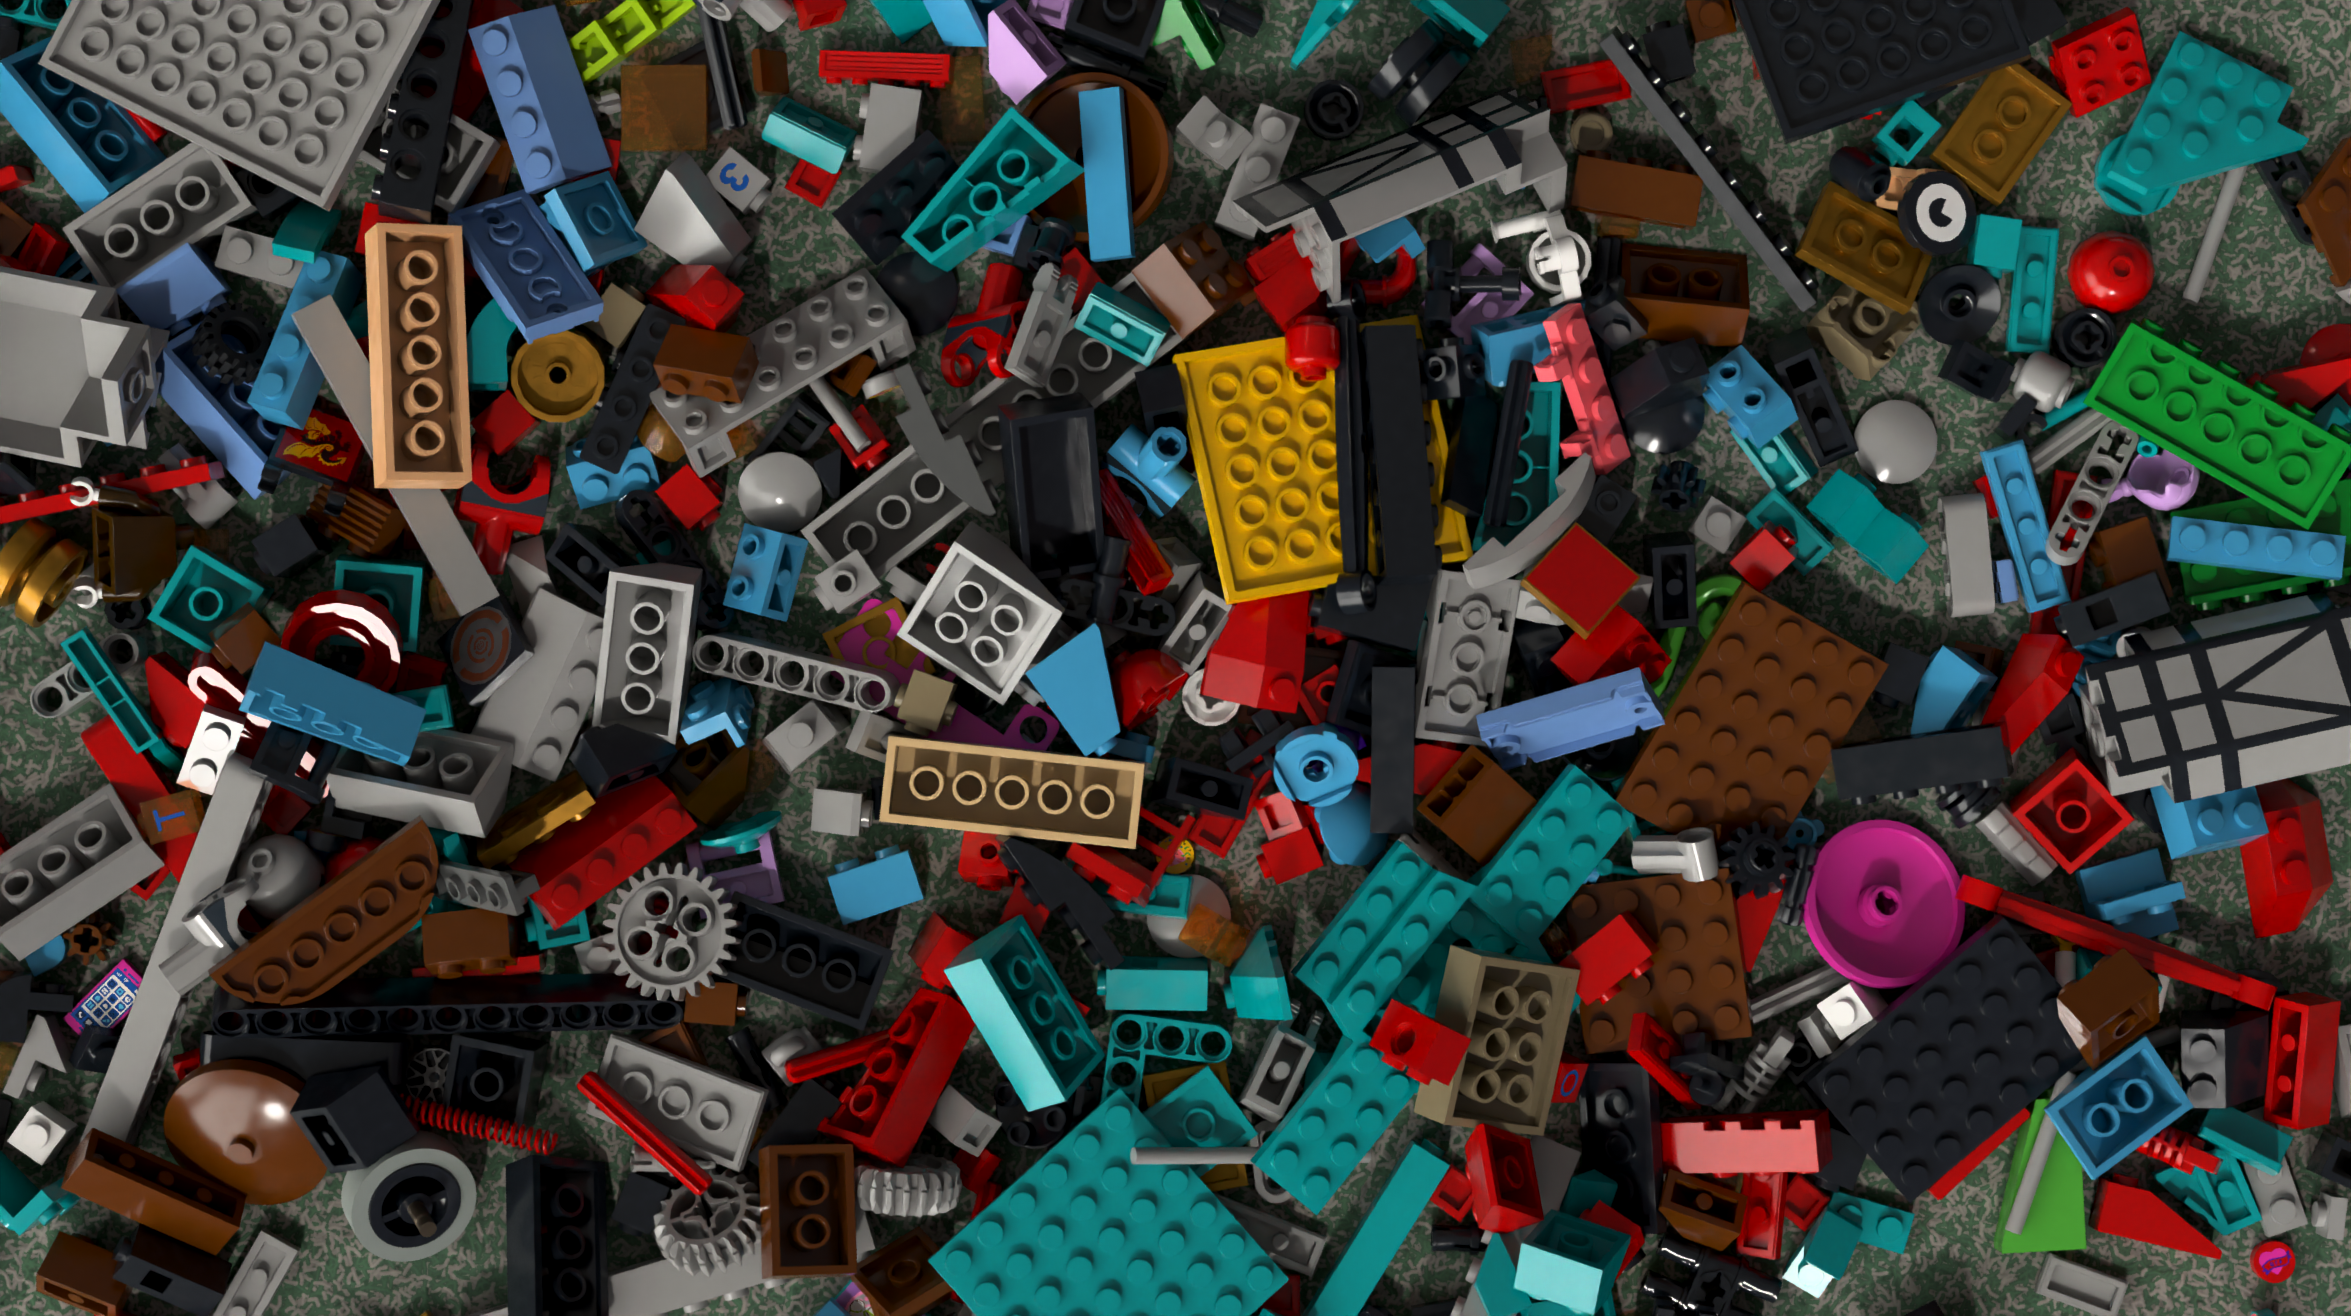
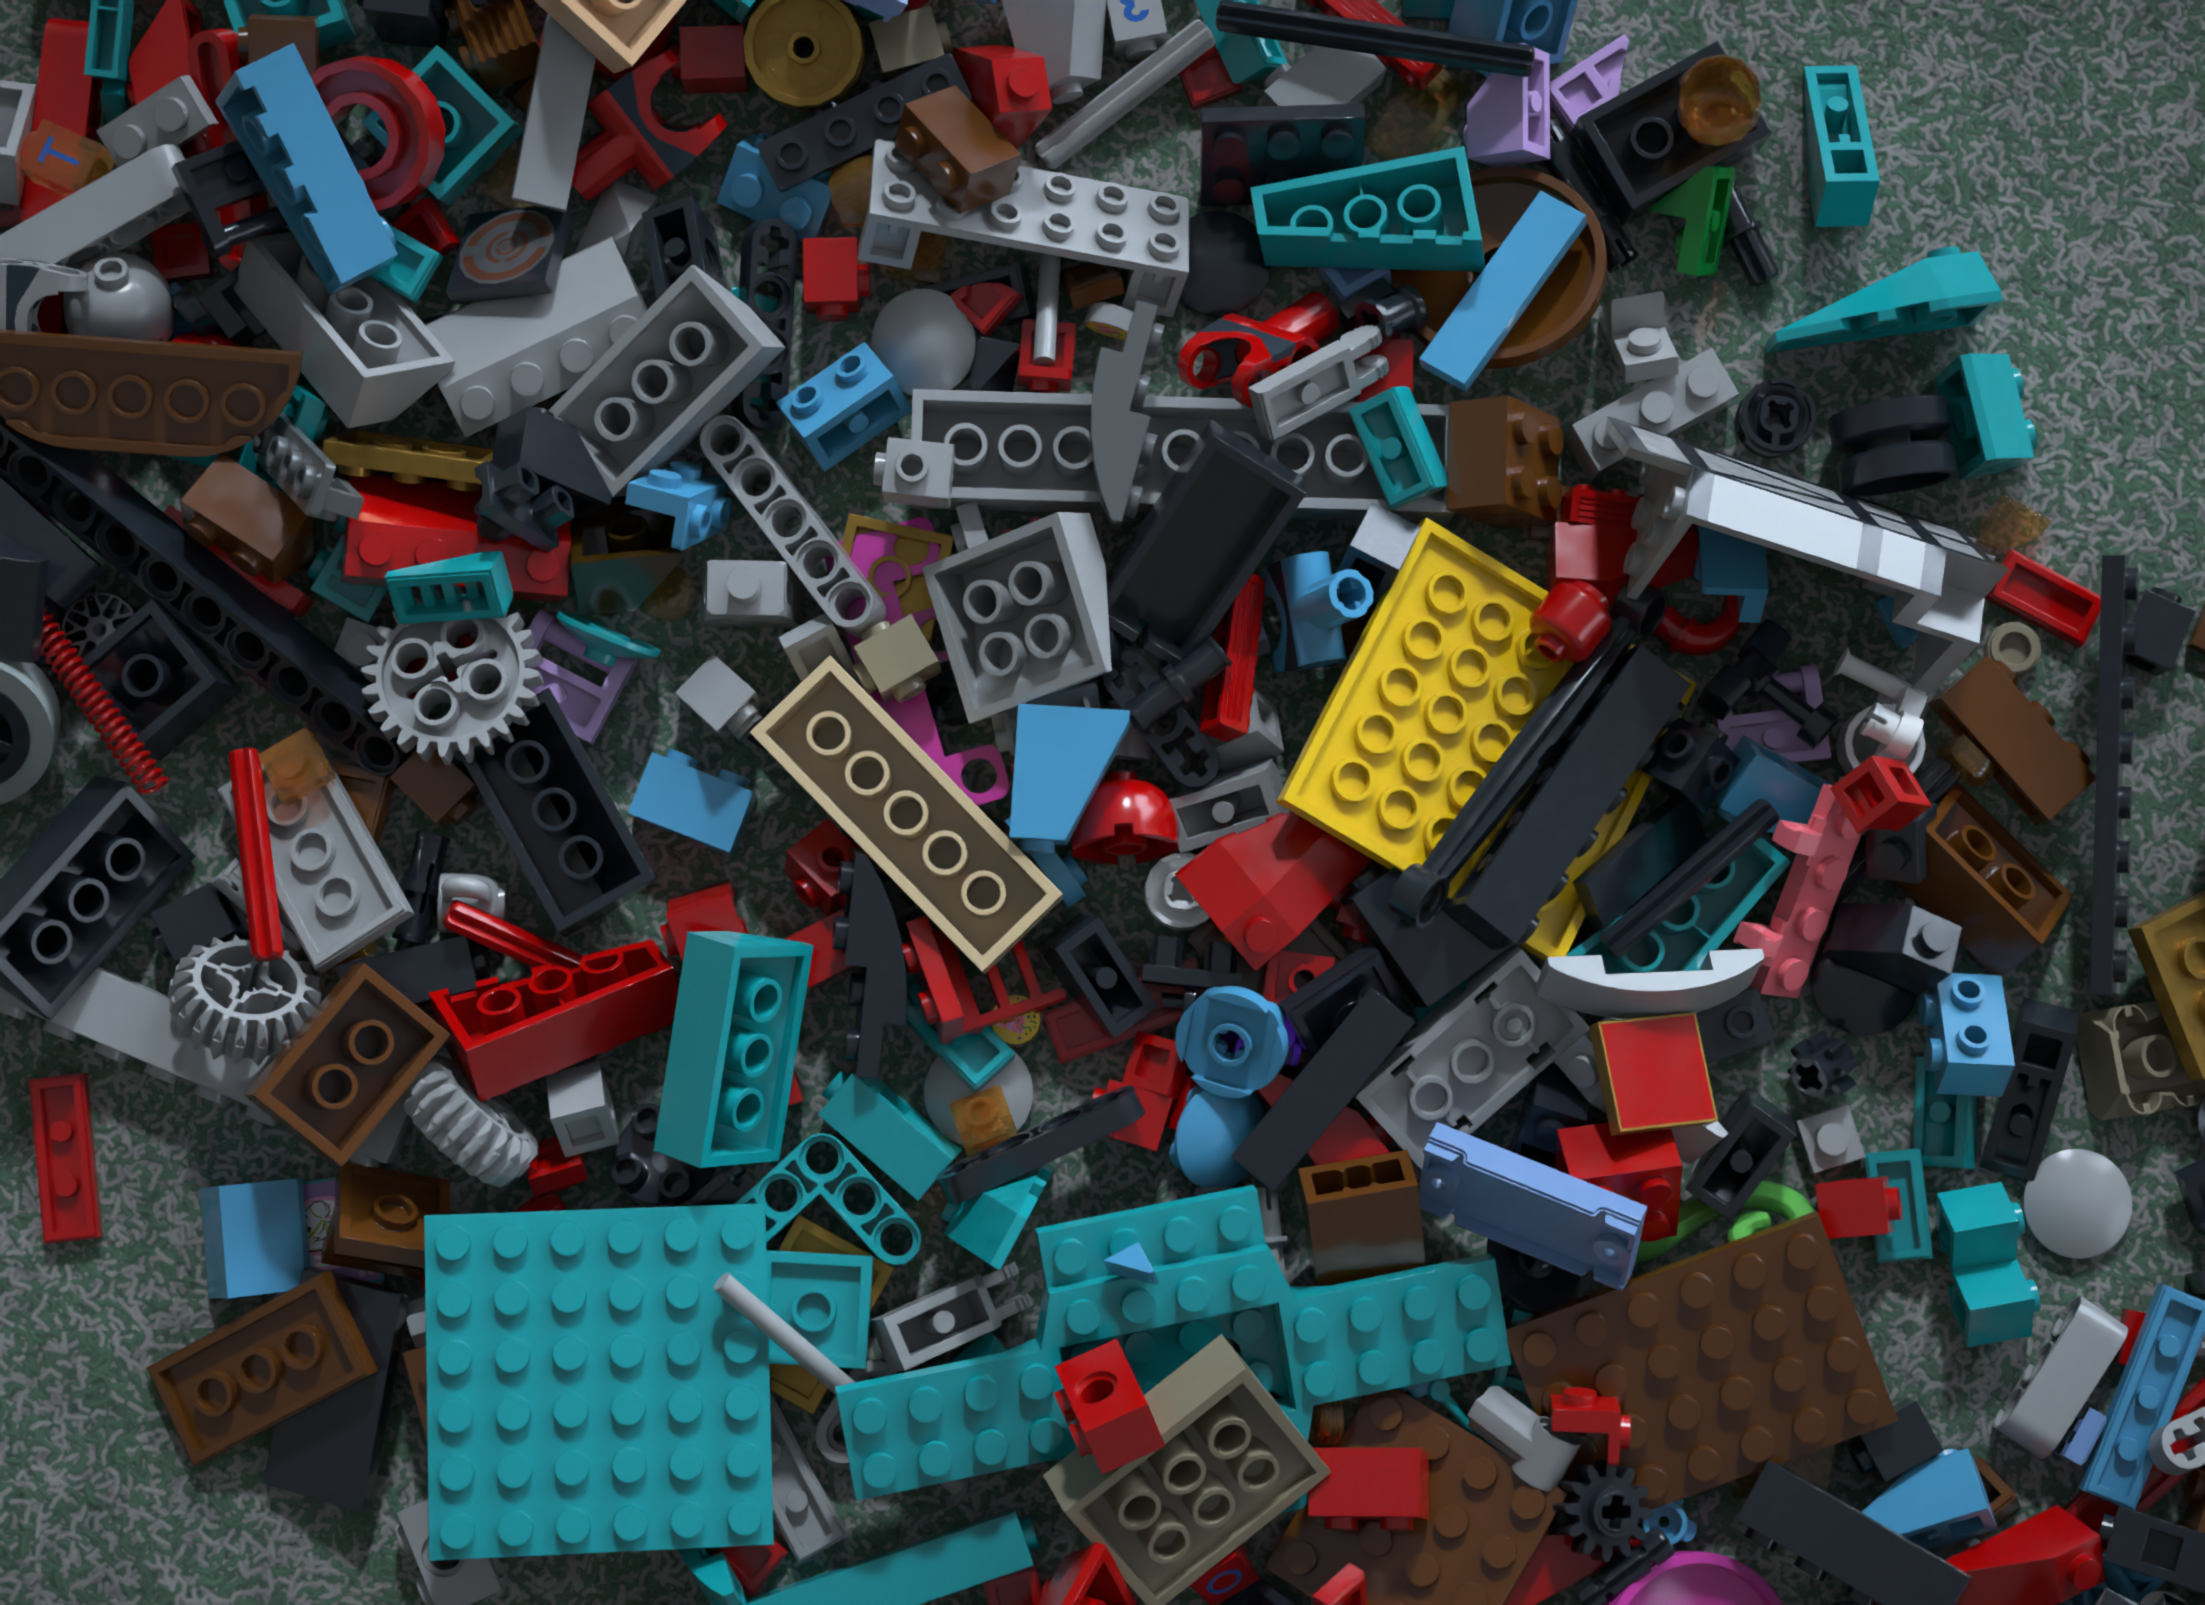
camera: 30 degrees right, 5 degrees down
(623, 1061) = (296, 766): none -> clear orange plate
(628, 800) = (516, 508): none -> black hips
(630, 863) = (467, 569): none -> teal slope
(773, 236) = (1125, 94): none -> light grey axle
(798, 439) = (986, 304): none -> red tile
(901, 81) = (1375, 38): none -> black axle
(1252, 919) = (1040, 1144): none -> black beam
(1365, 947) = (1132, 1264): none -> dark azure piece
(1582, 303) = (1880, 795): none -> red brick
(1701, 811) = (1585, 1412): none -> red bracket

